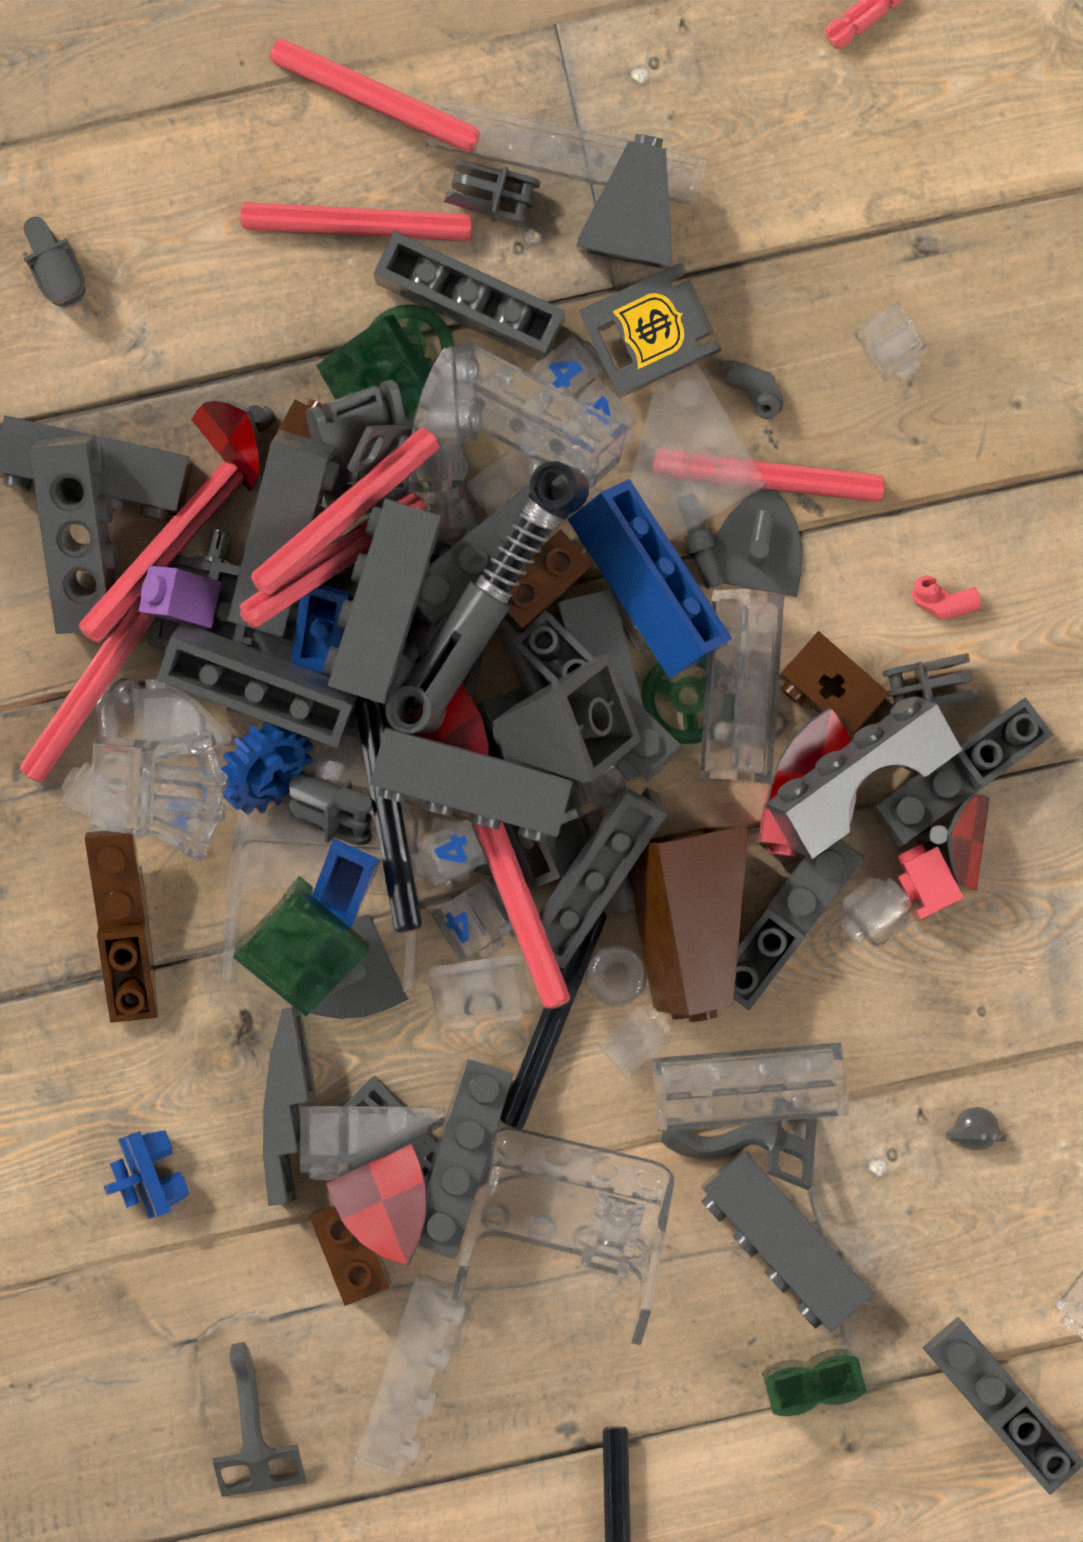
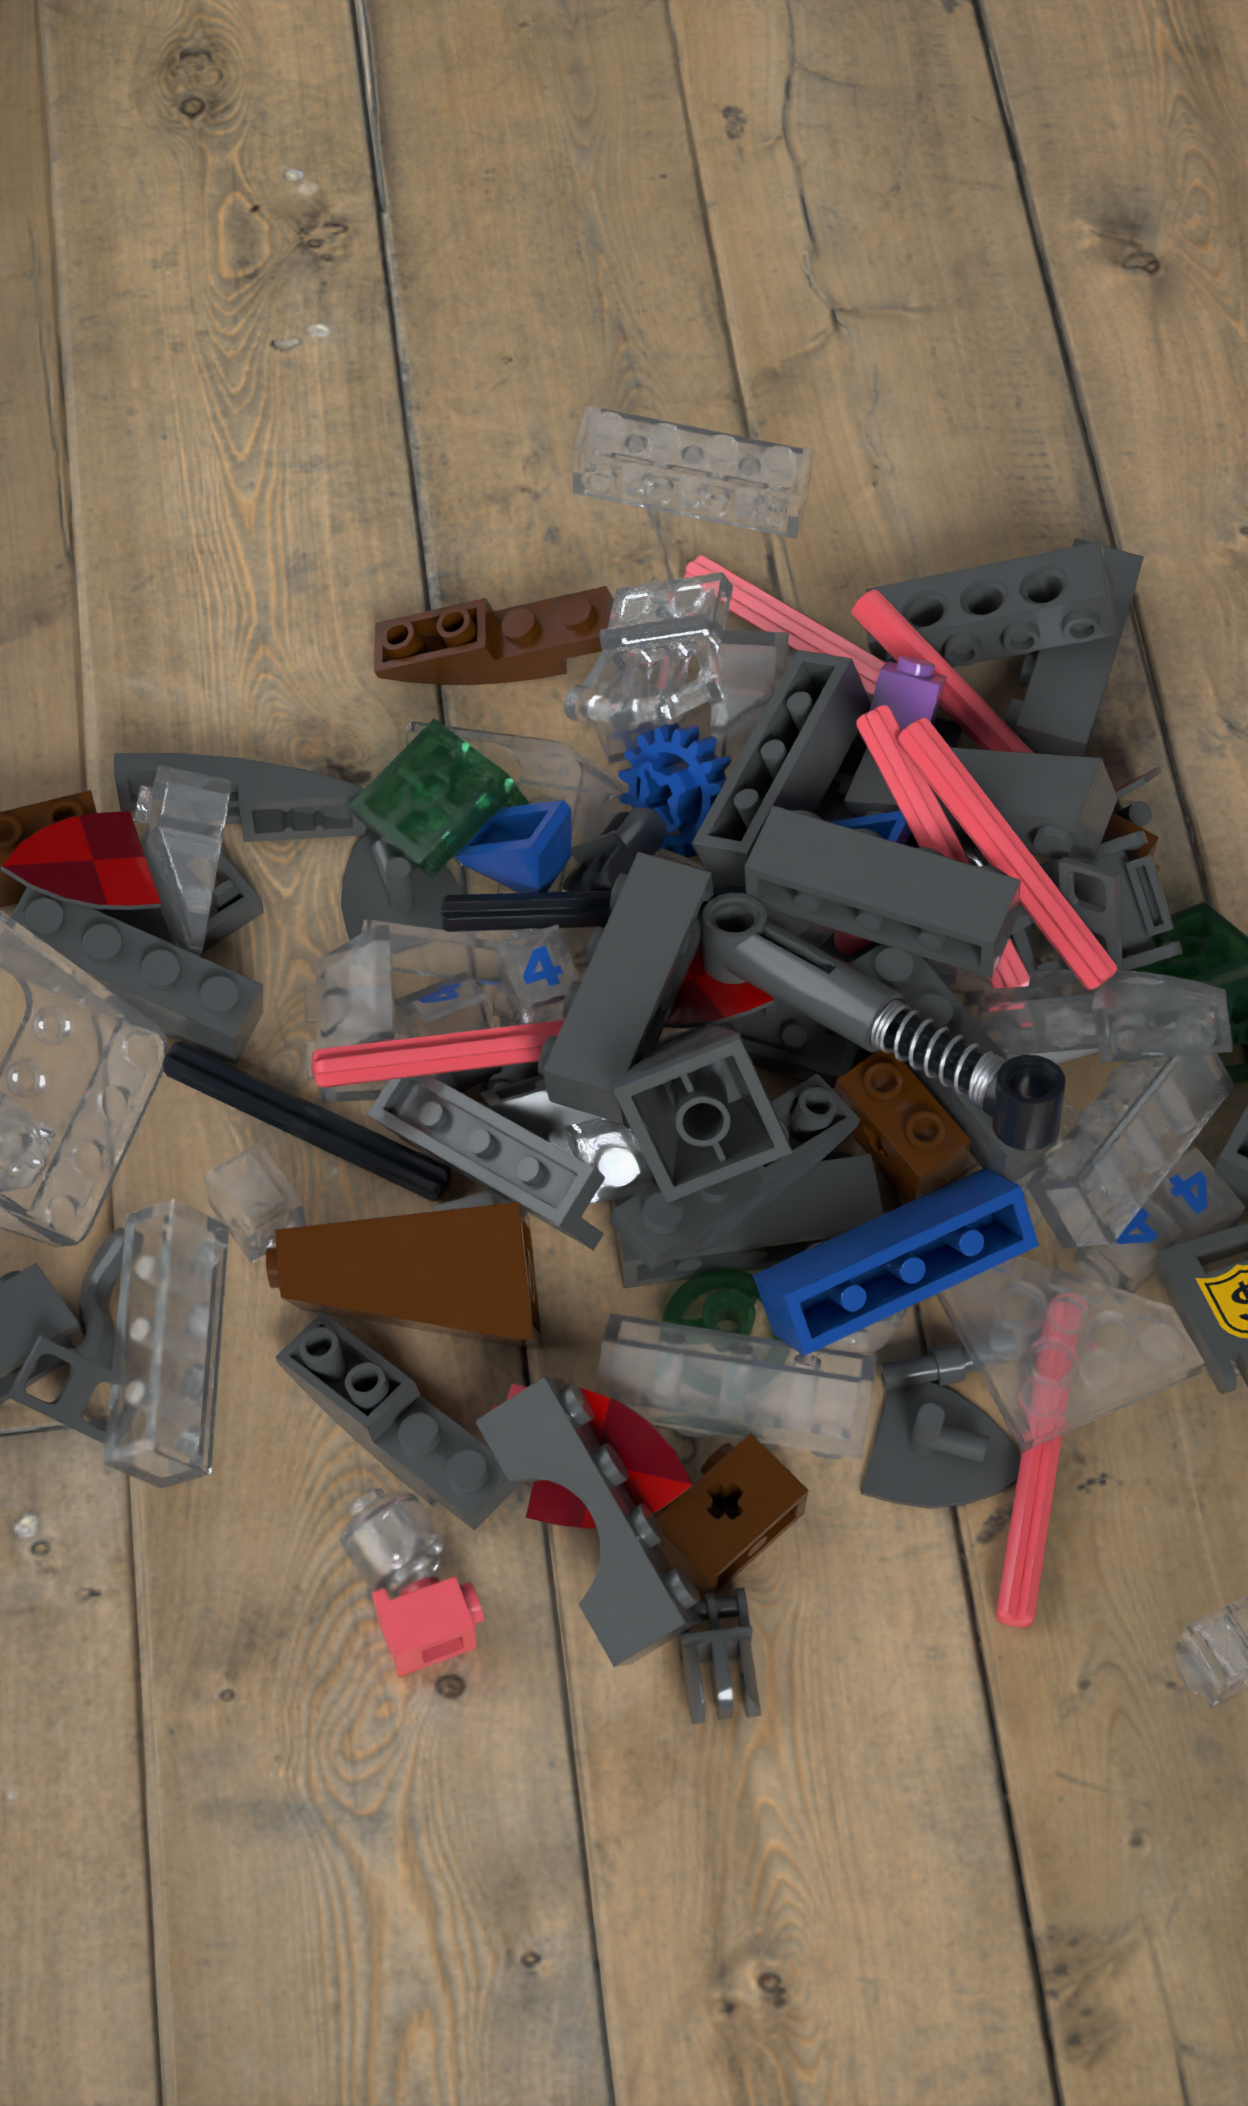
camera: 95 degrees right, 25 degrees down
(154, 1192) = (177, 633): blue hips -> none
(616, 975) = (348, 1183): clear head -> none
(760, 386) = (1166, 1468): dark grey arm -> none
(940, 602) = (840, 1689): coral arm -> none
(963, 839) = (481, 1675): shield -> none
(976, 1129) = (54, 1666): dark grey piece -> none
(980, 761) = (583, 1686): dark grey slope -> none

